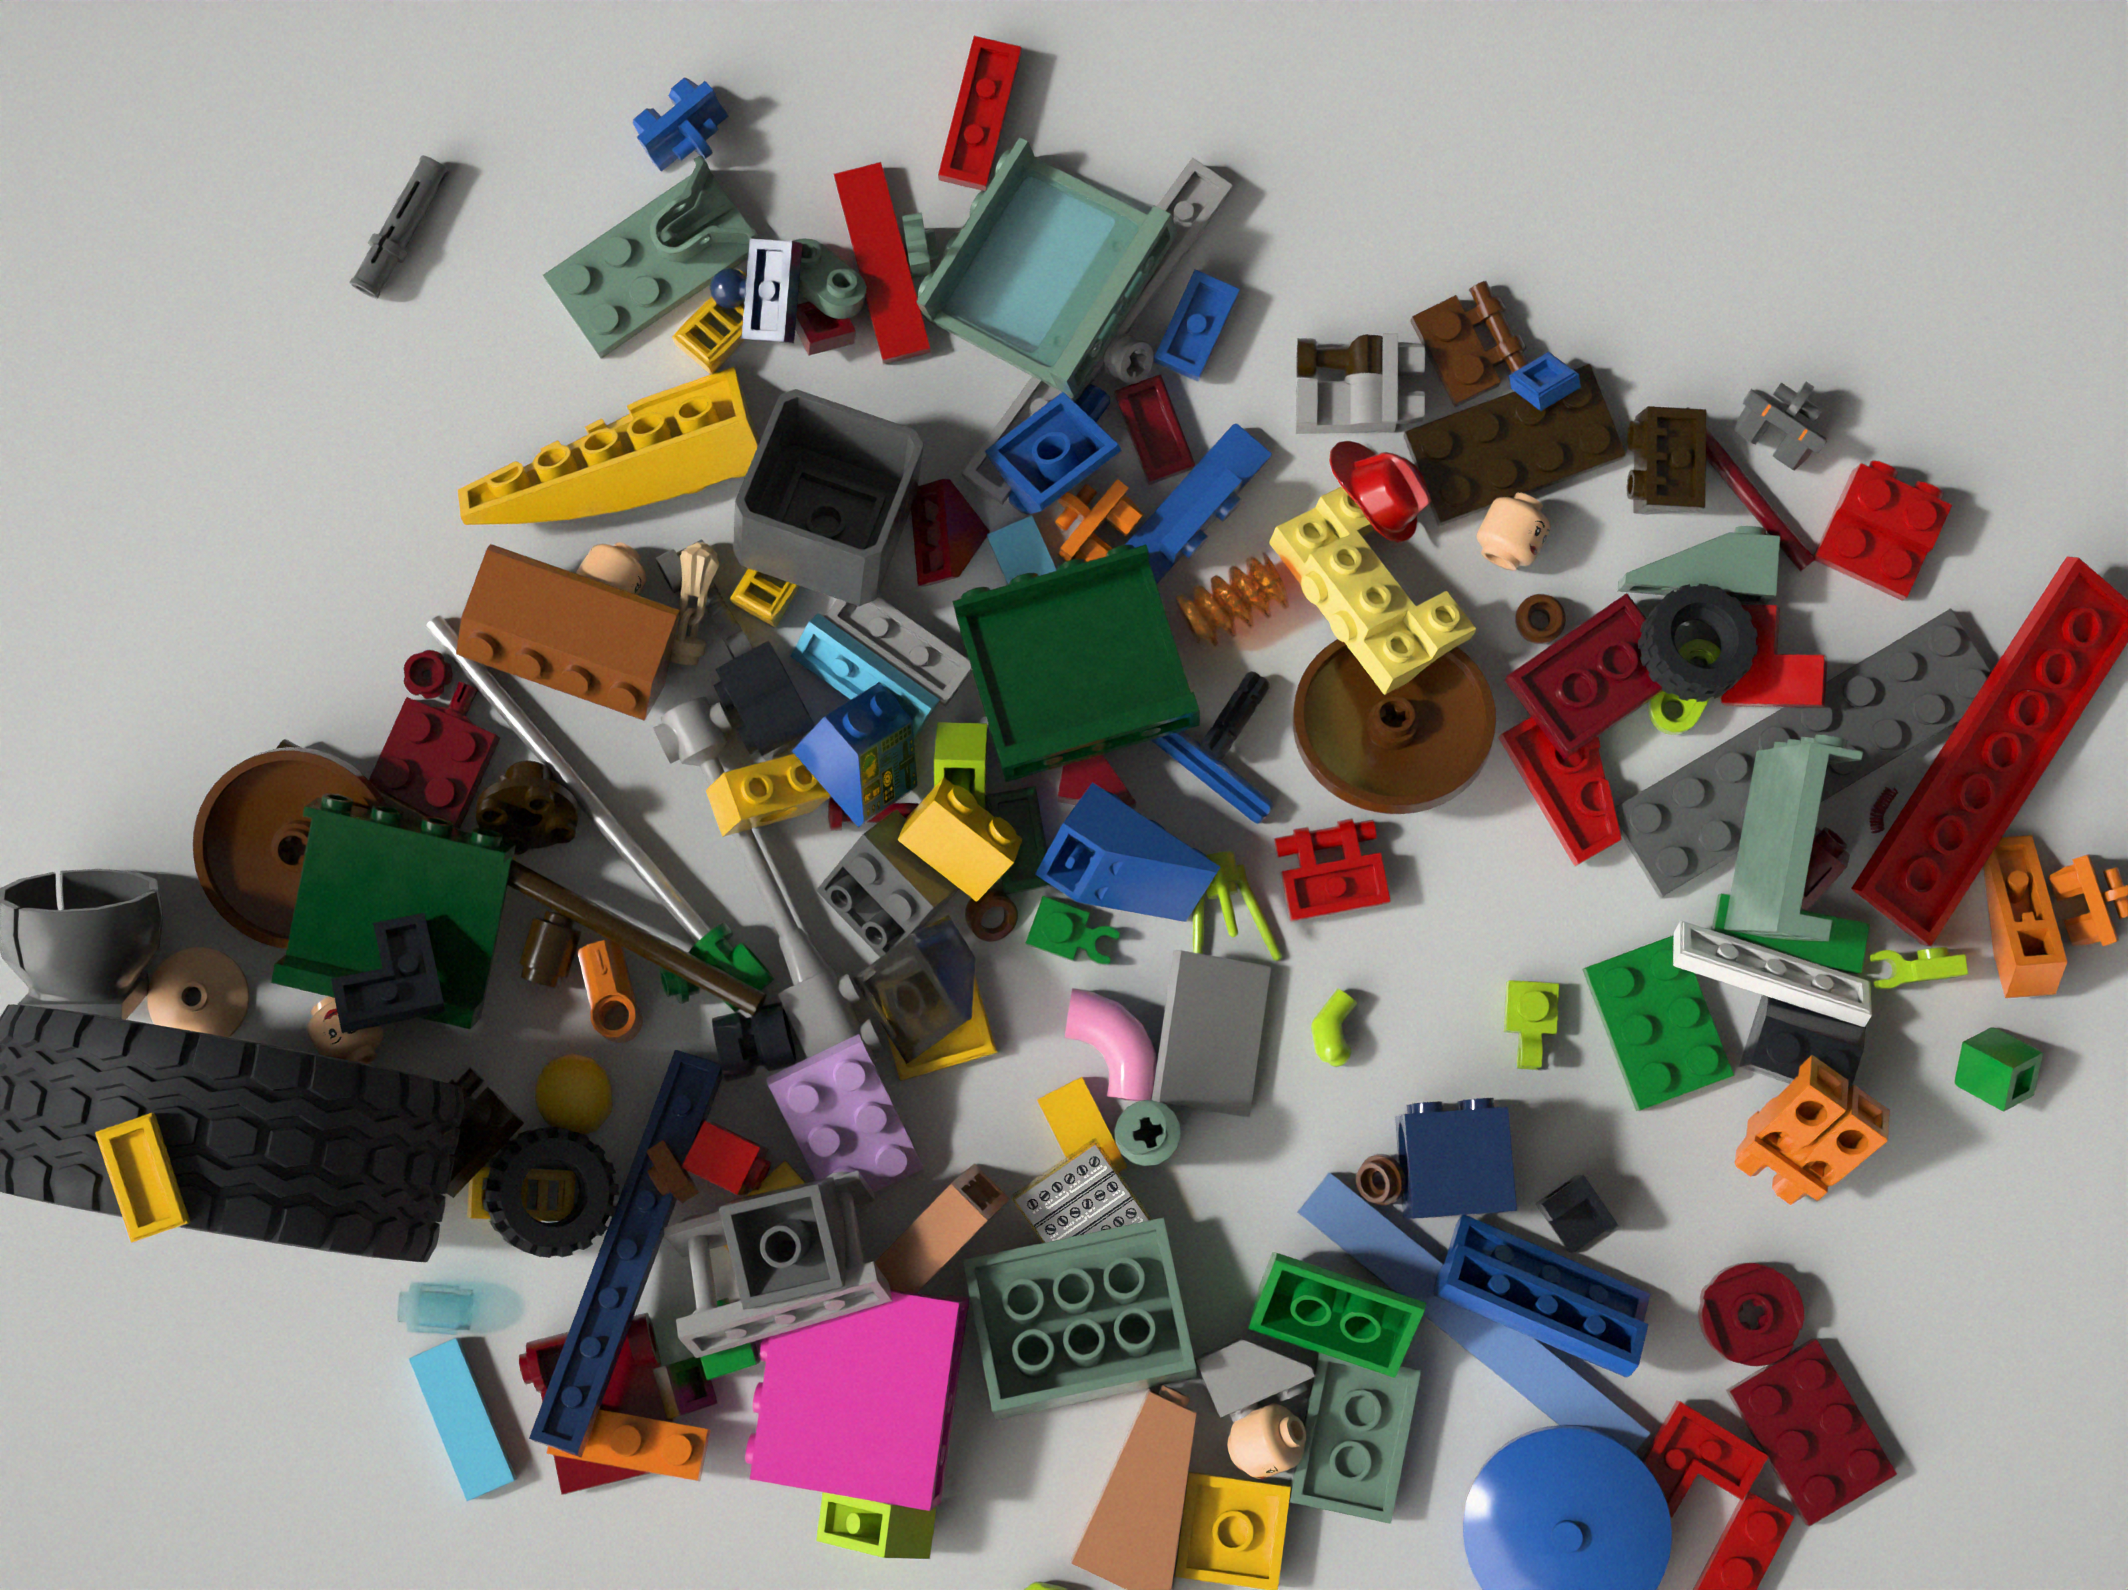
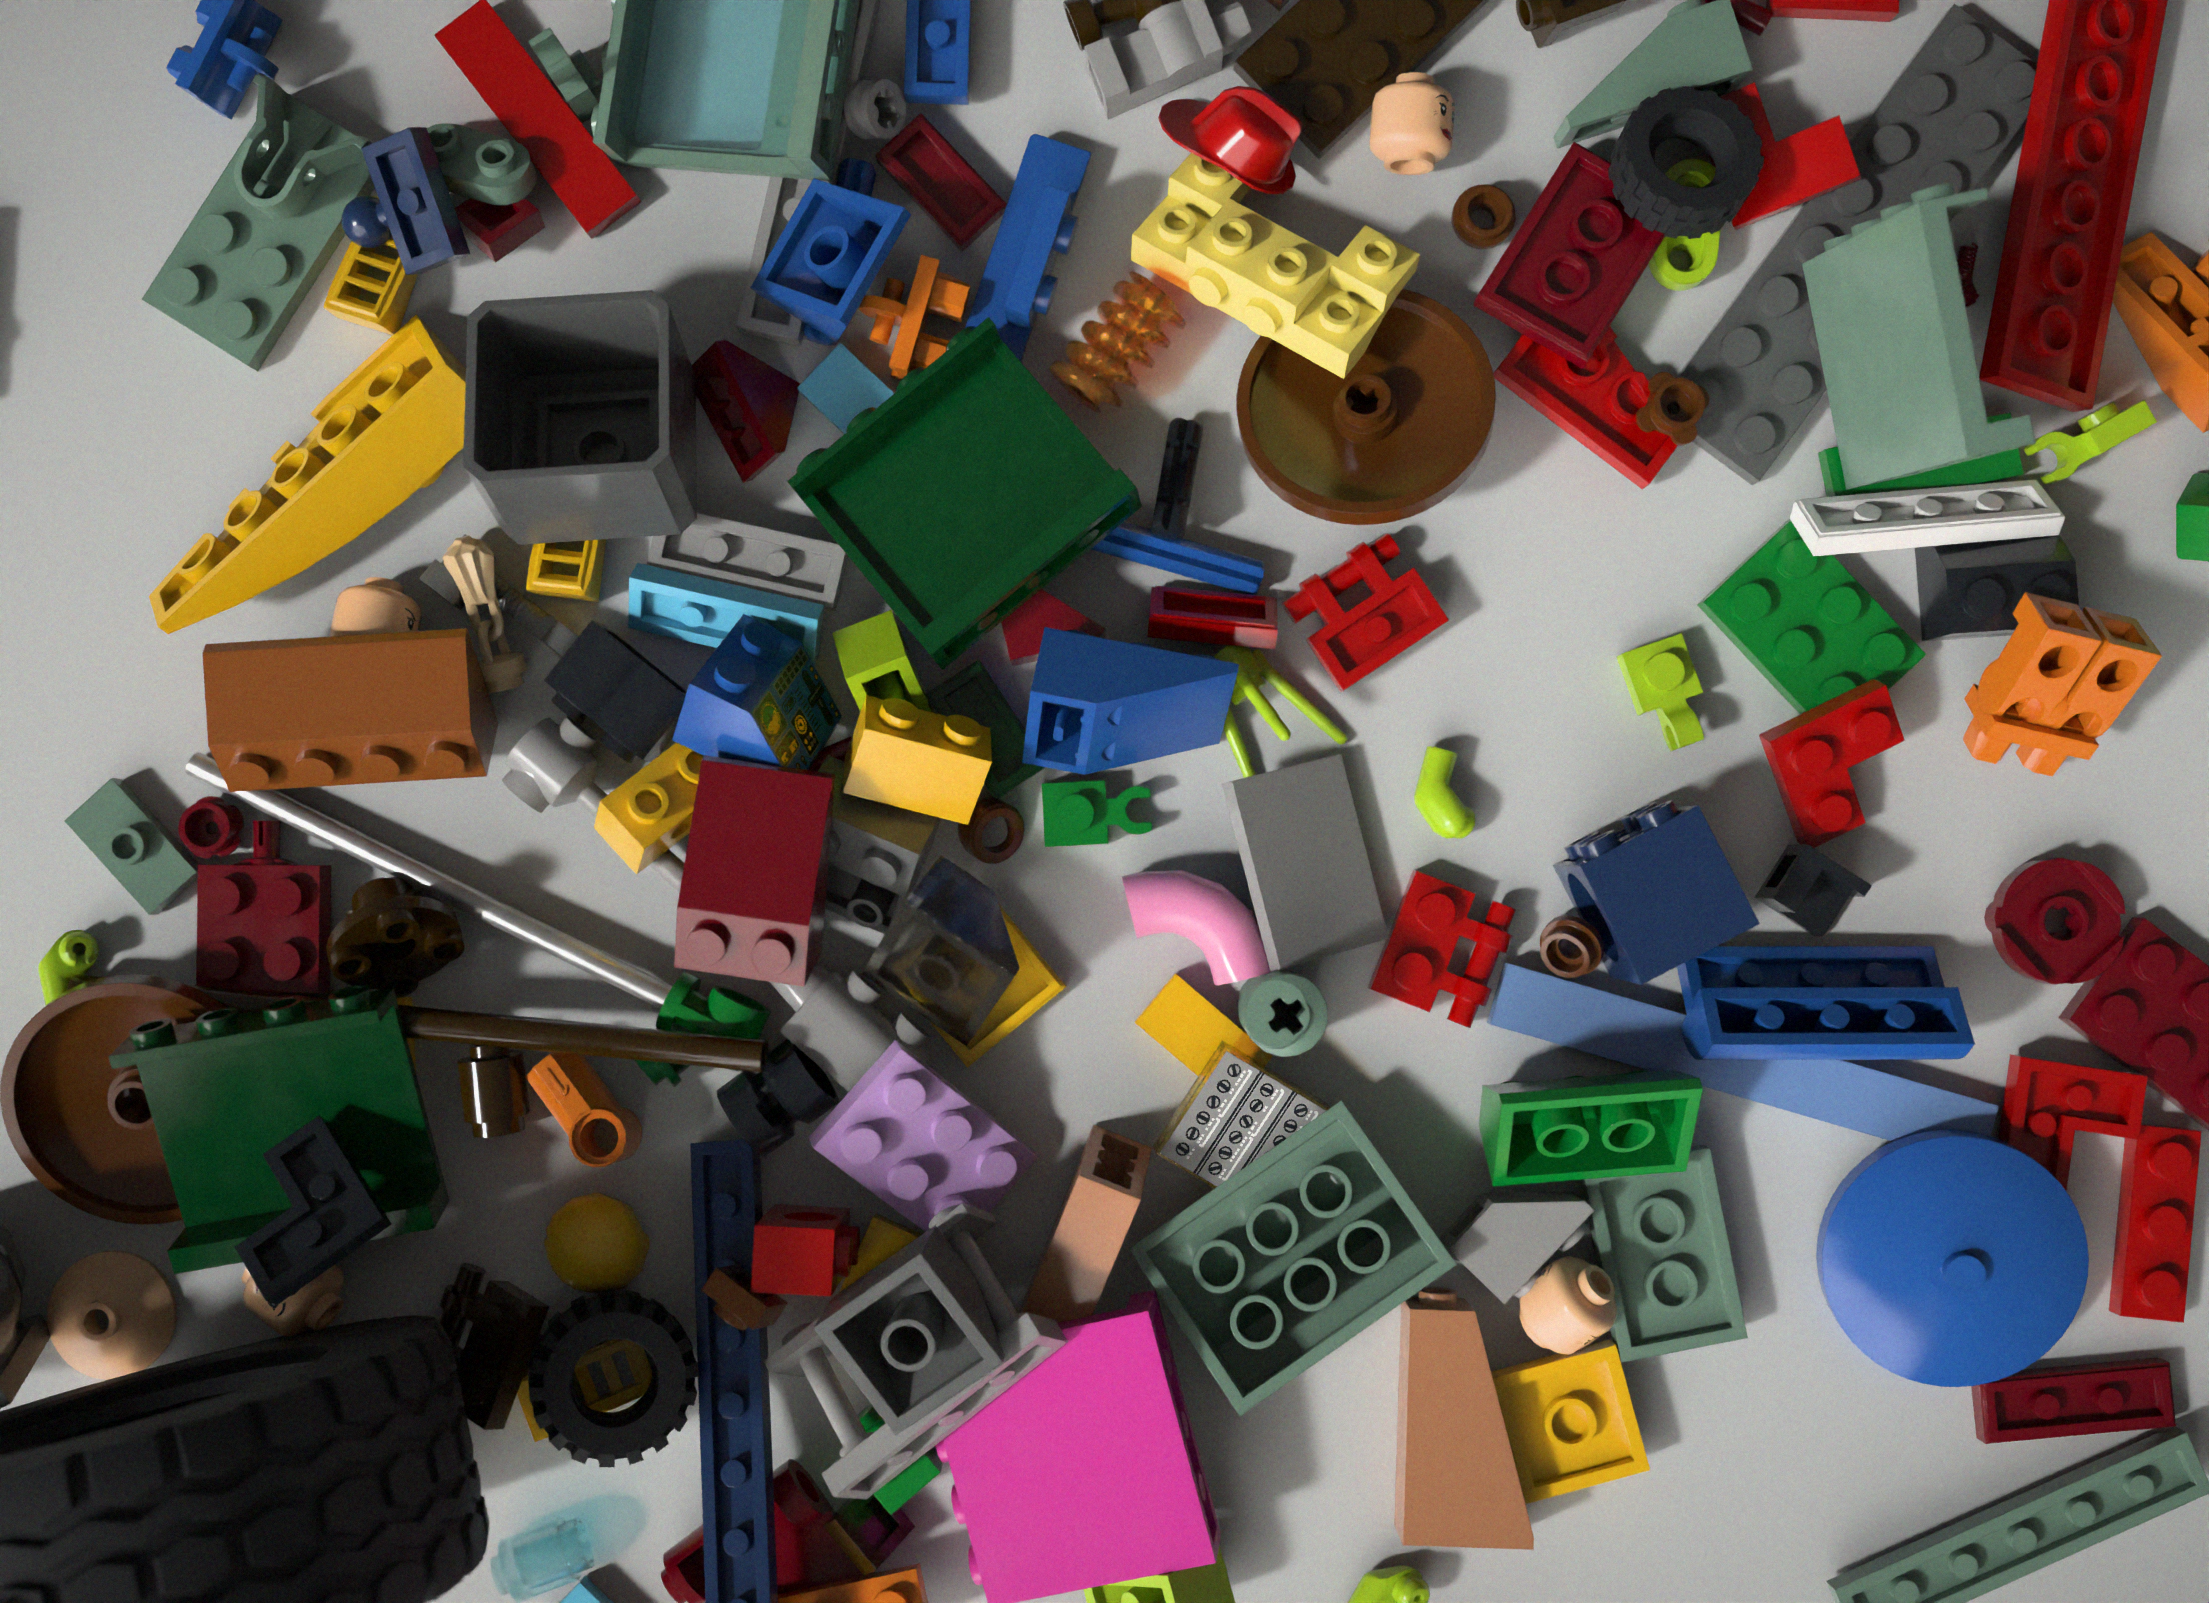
camera: 25 degrees left, 5 degrees up
(280, 725) = (69, 956): none -> lime arm
(365, 664) = (134, 846): none -> sand green plate
(812, 869) = (755, 872): none -> dark red slope
(1218, 827) = (1213, 617): none -> red tile
(1274, 1131) = (1423, 942): none -> red plate
(1619, 1111) = (1814, 755): none -> red plate
(1631, 813) = (1682, 392): none -> reddish brown plate

